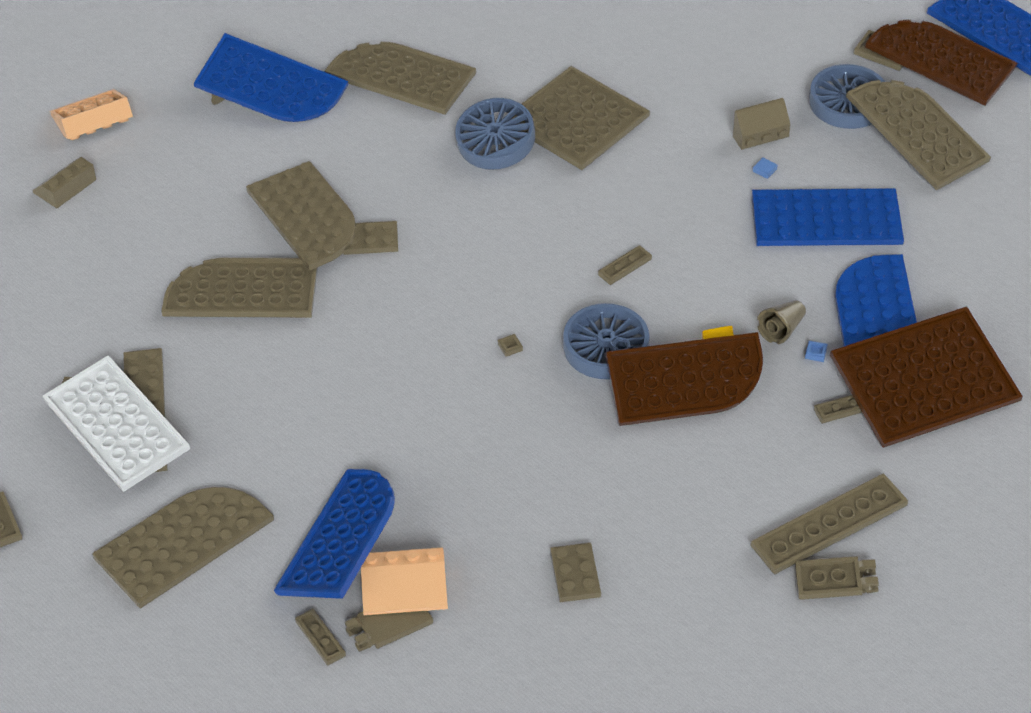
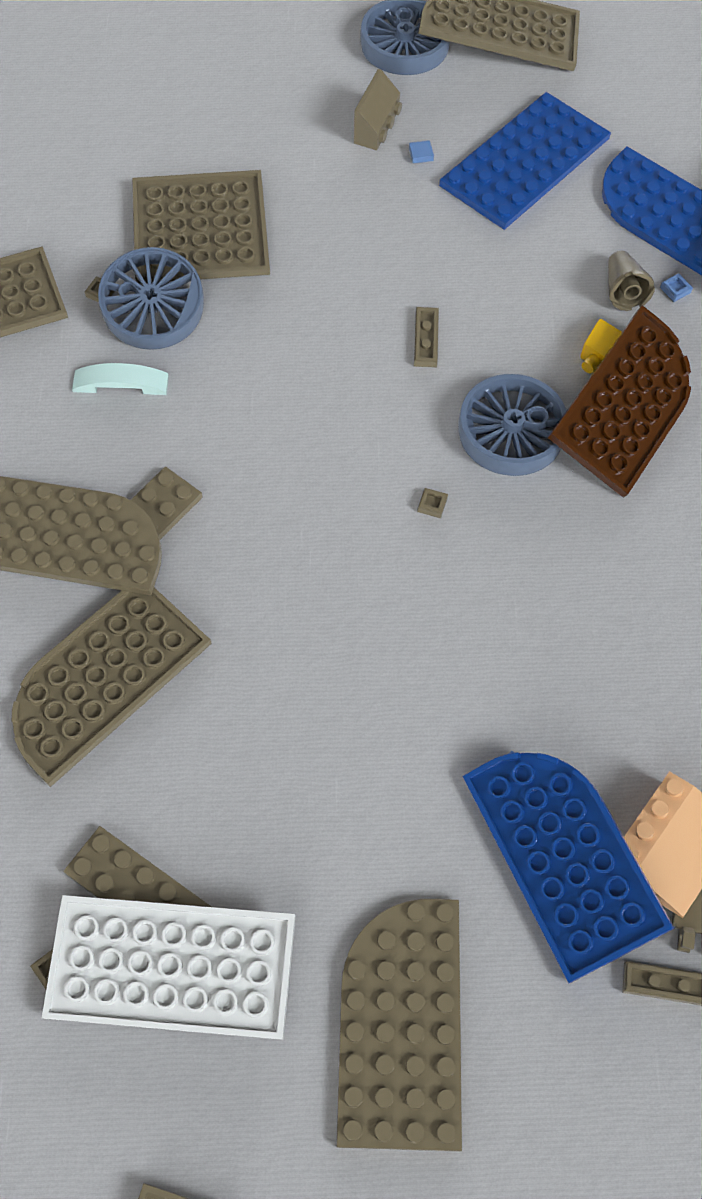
camera: 50 degrees left, 15 degrees up
(433, 163) = (120, 376): none -> light aqua slope

